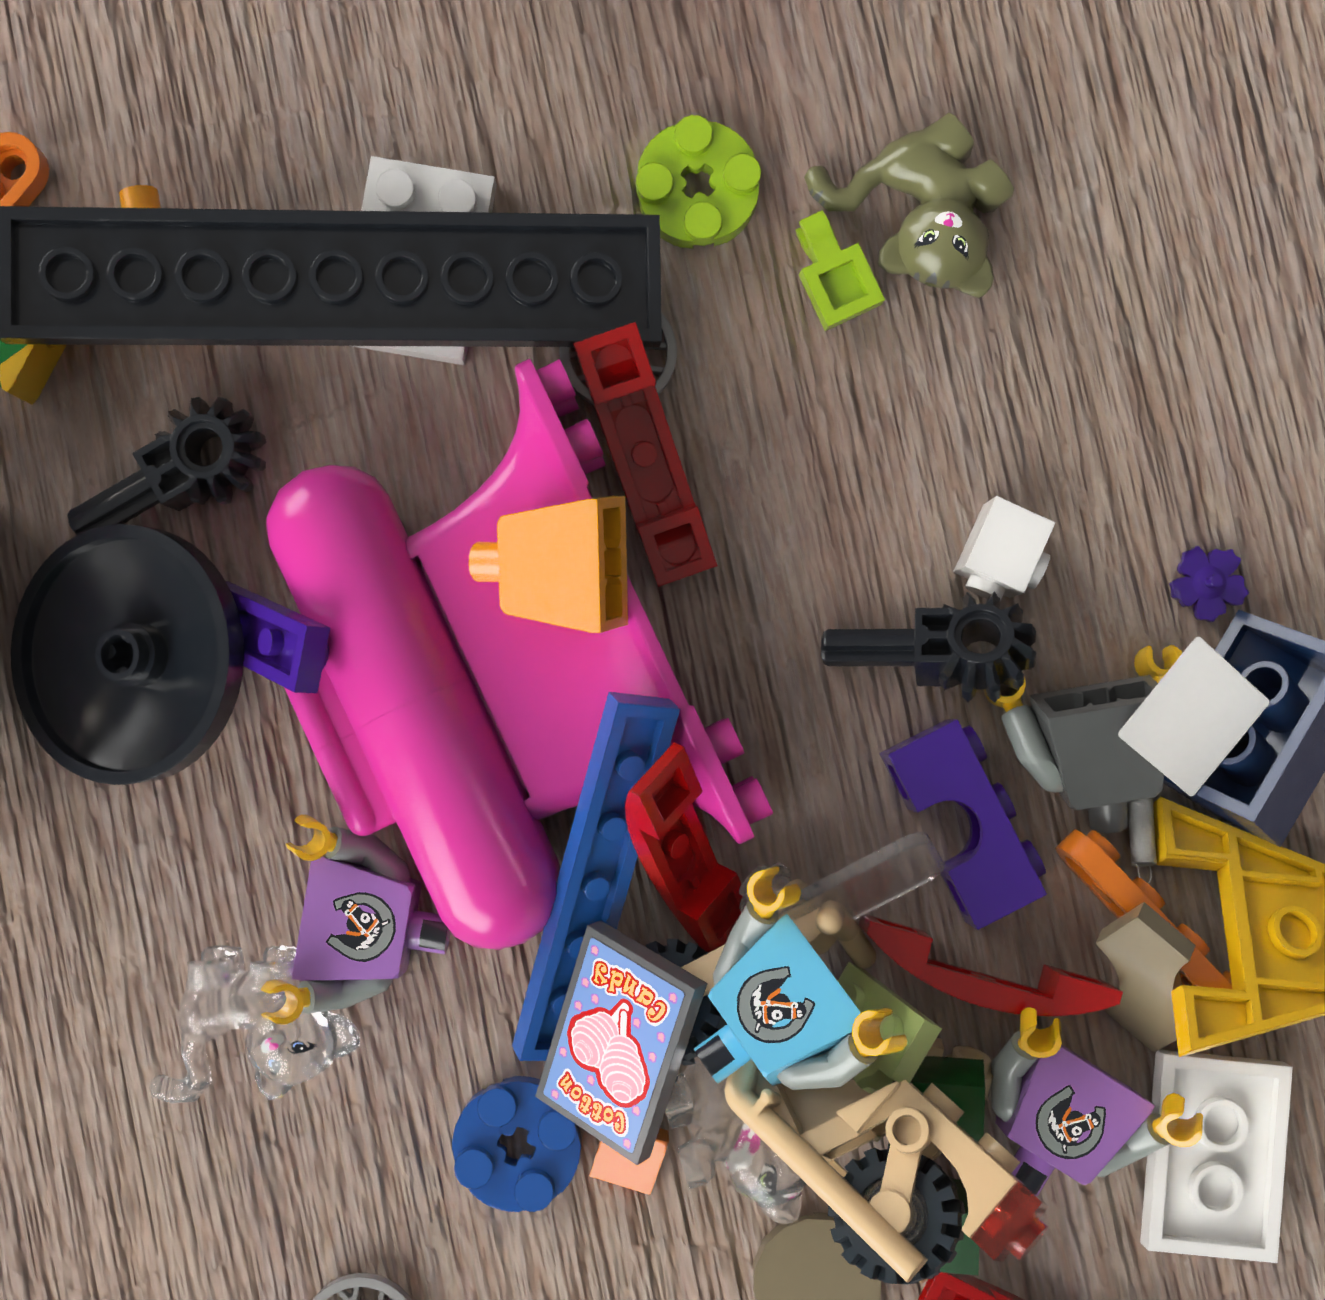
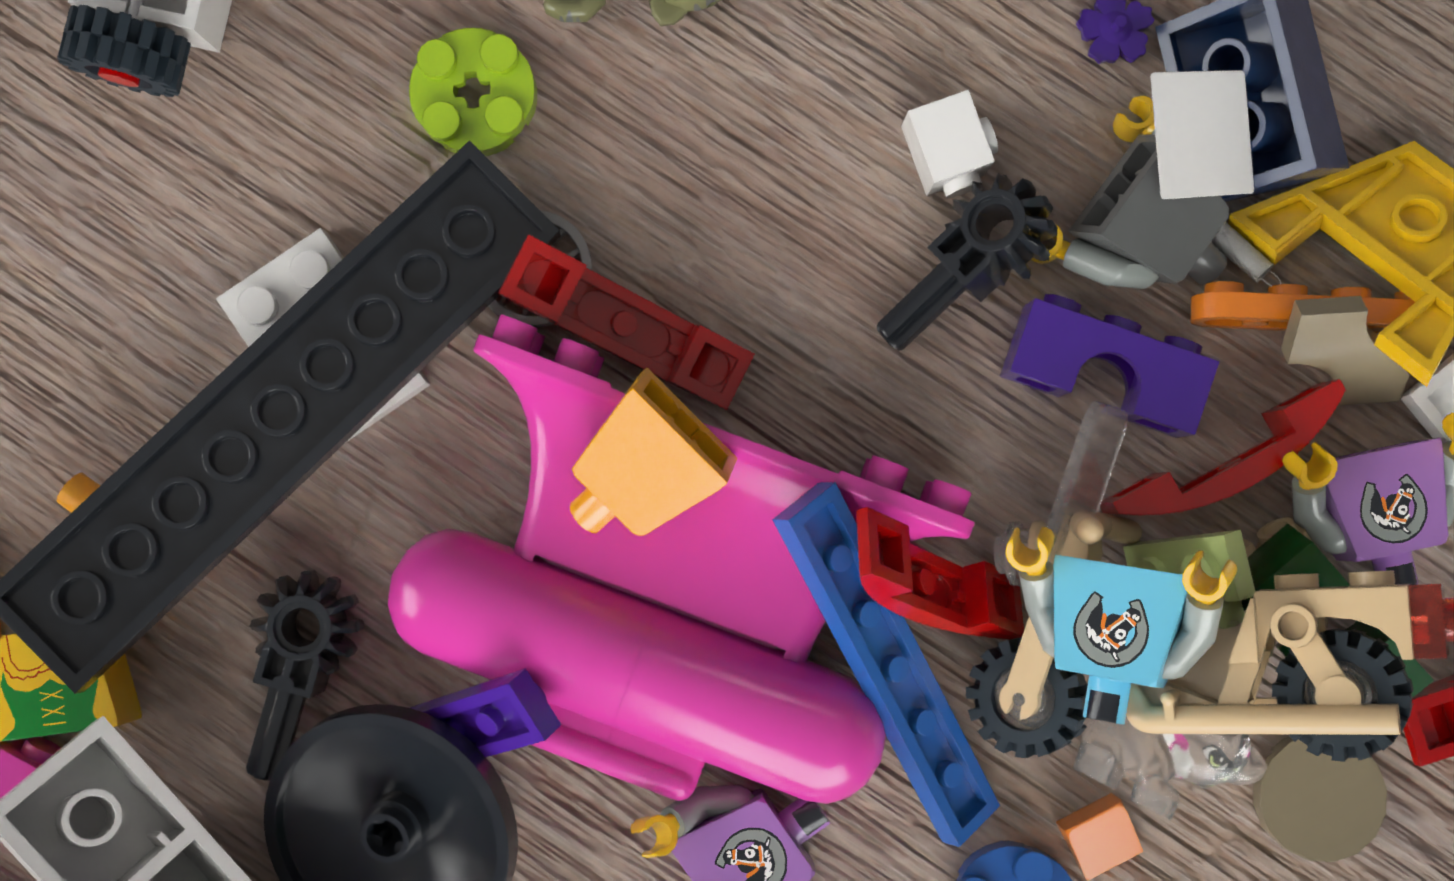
camera: 35 degrees left, 0 degrees up
(620, 1041) = (1019, 762): tile -> none
(839, 279) = (642, 65): lime plate -> none

